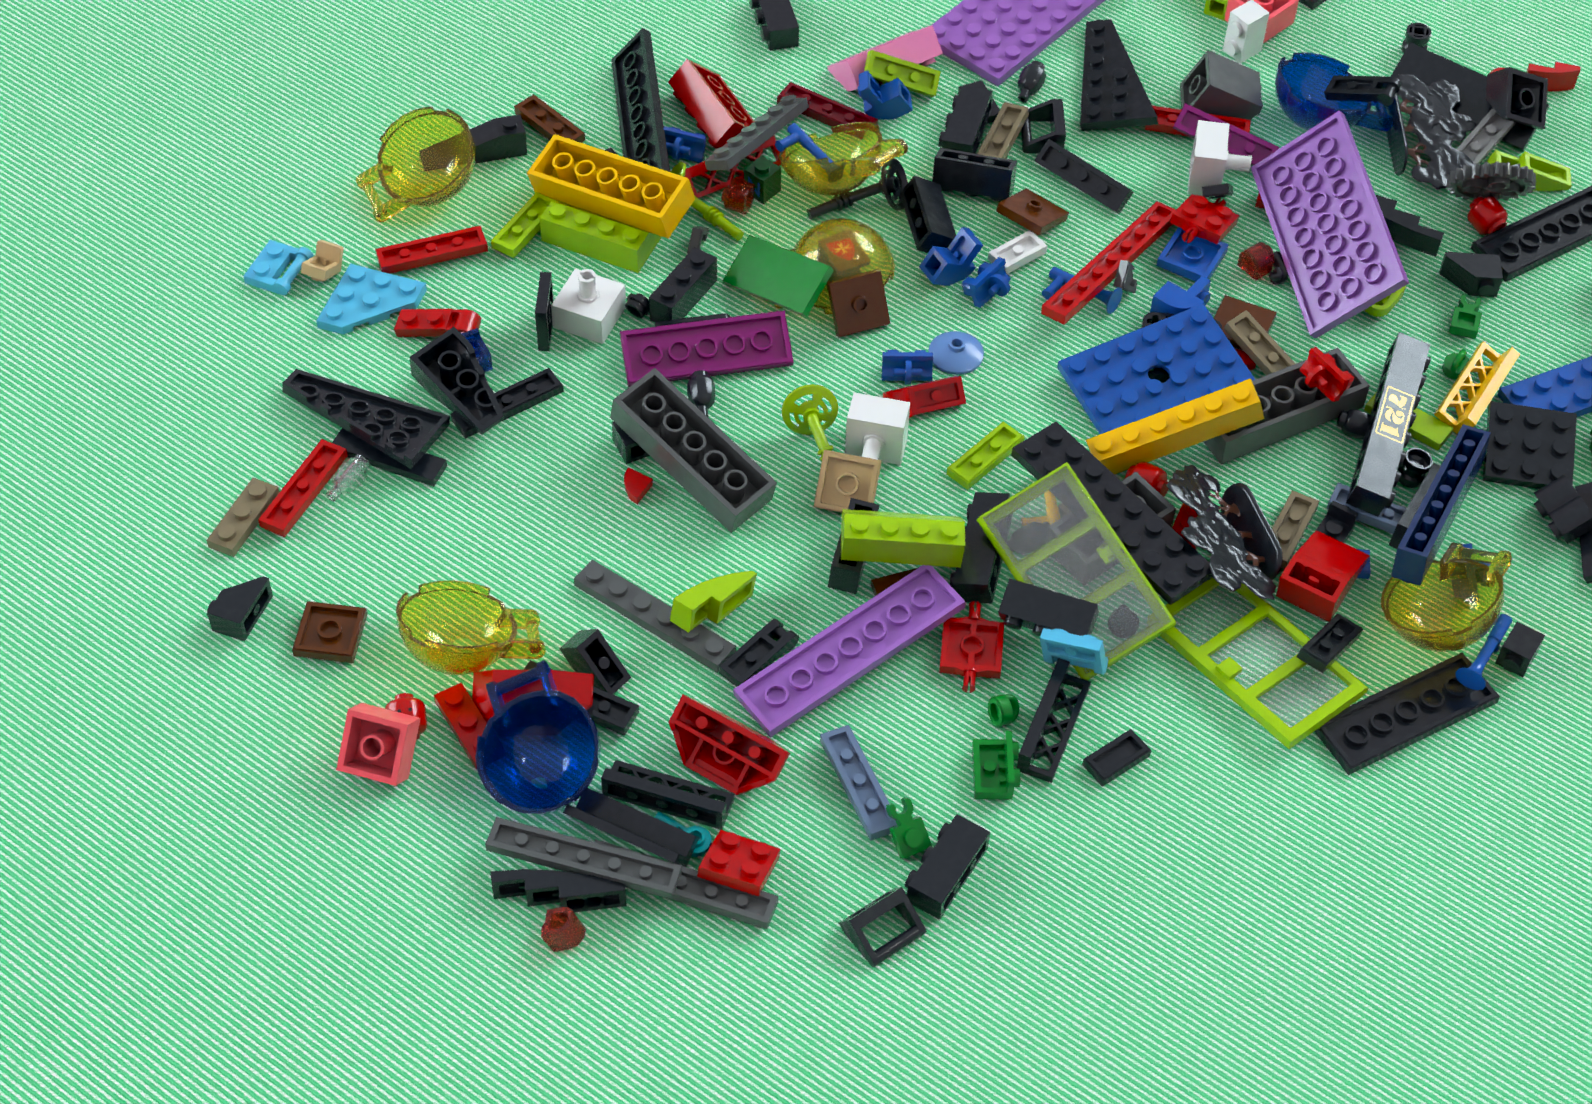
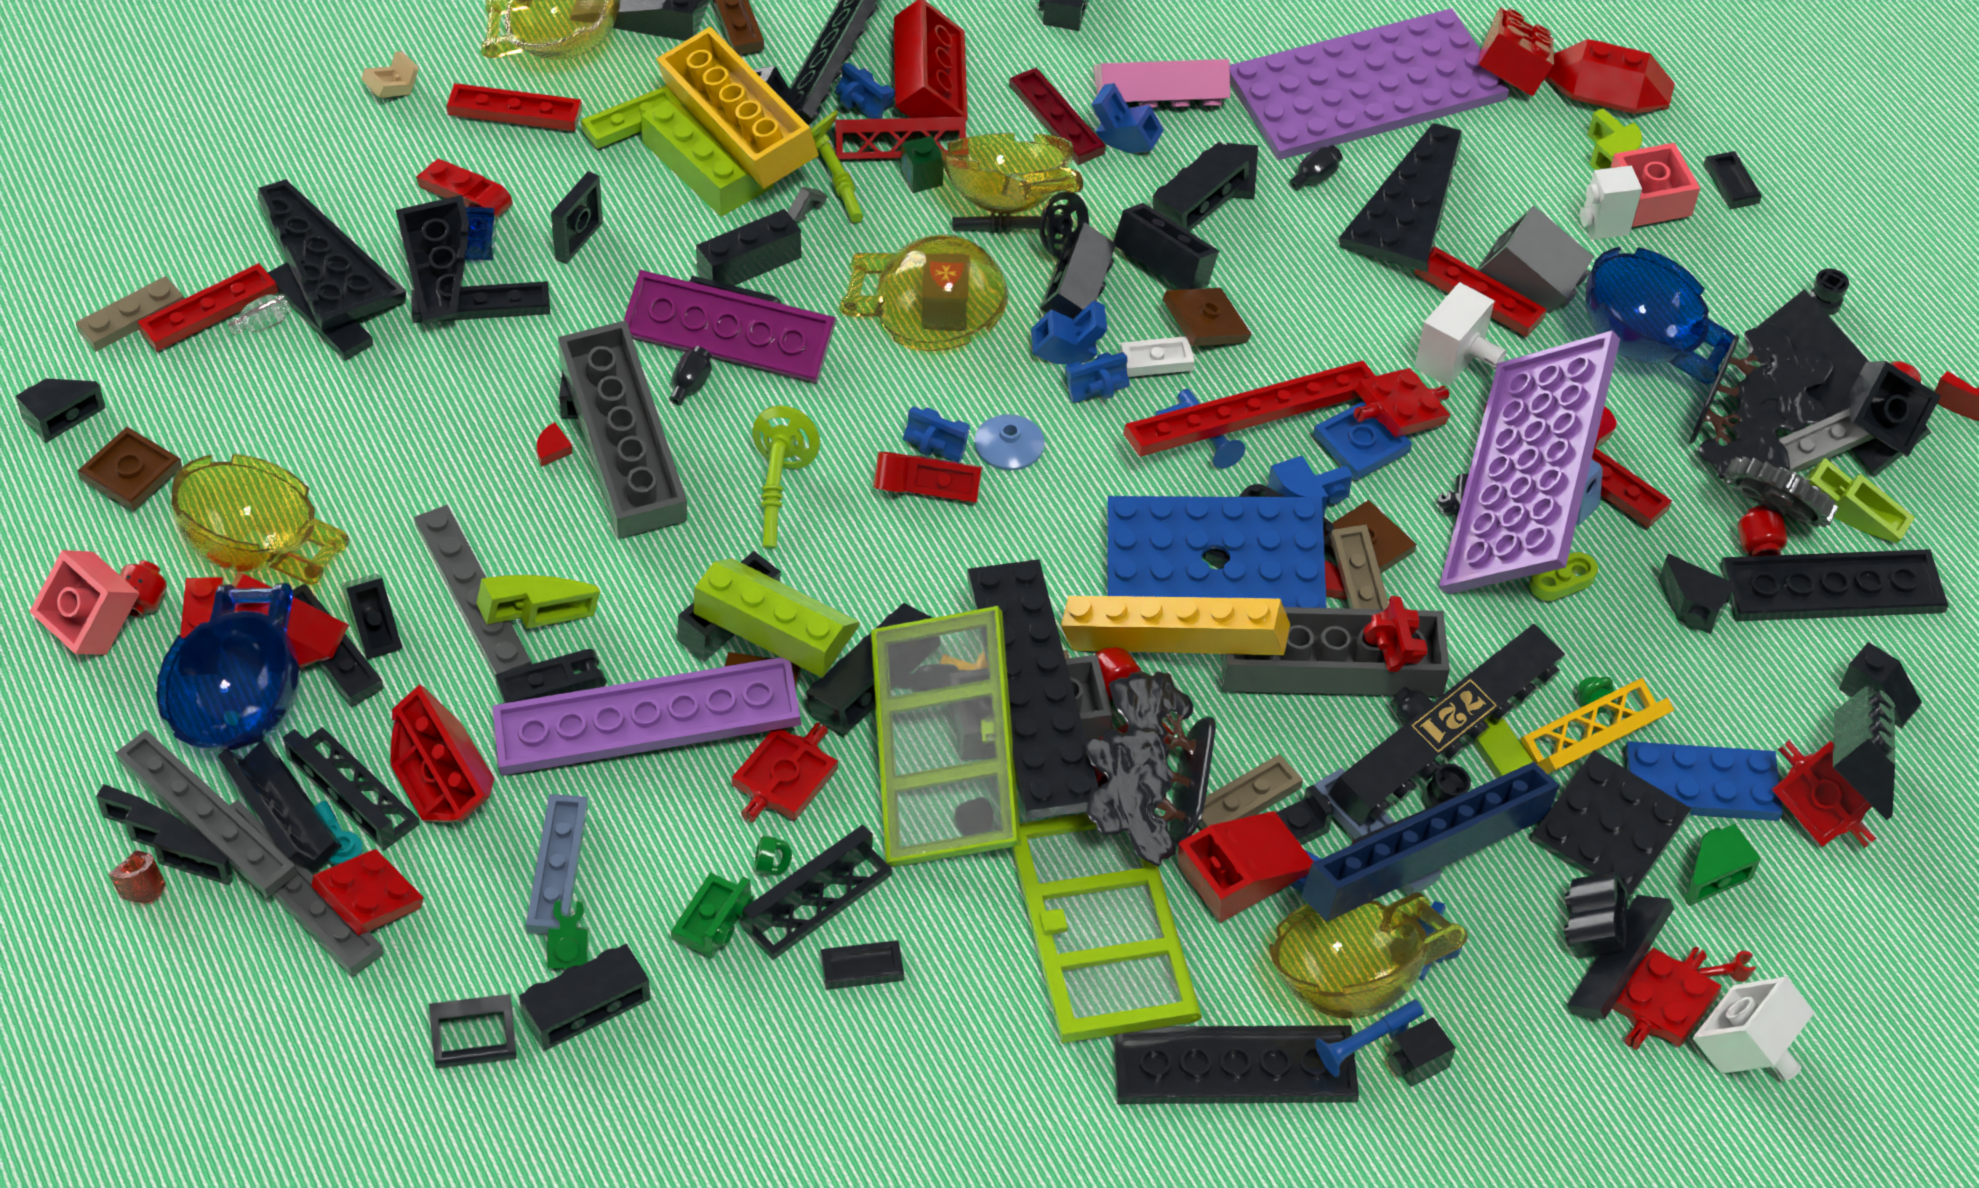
camera: 25 degrees right, 0 degrees up
(272, 262) = (344, 64): medium azure plate -> none
(368, 297) = (414, 133): medium azure plate -> none
(588, 305) = (634, 230): white brick -> none
(637, 305) = (687, 249): black plate -> none
(738, 195) = (884, 172): clear red plate -> none
(756, 134) = (940, 110): dark grey plate -> none
(778, 275) = (855, 276): green tile -> none
(797, 135) = (990, 130): blue piece -> none
(844, 478) = (773, 531): tan tile -> none
(858, 303) = (926, 341): reddish brown plate -> none
(877, 428) = (843, 489): white brick -> none
(914, 76) = (1169, 107): lime plate -> none
(984, 455) = (950, 569): lime tile -> none
(1004, 131) = (1238, 214): dark tan plate -> none
(1043, 608) = (880, 769): black brick -> none
(1048, 111) = (1292, 247): black tile -> none
(1079, 650) = (886, 825): medium azure plate -> none
(1084, 176) = (1297, 299): black plate -> none
(1124, 277) = (1257, 433): dark grey tile -> none
(1217, 191) = (1441, 376): black tile -> none
(1239, 141) = (1505, 324): magenta plate -> none
(1257, 260) = (1433, 474): clear red plate -> none
(1330, 643) = (1193, 944): black tile -> none
(1363, 89) = (1698, 322): black plate -> none
(1406, 231) = (1630, 498): black slope -> none
(1466, 318) = (1645, 646): green plate -> none

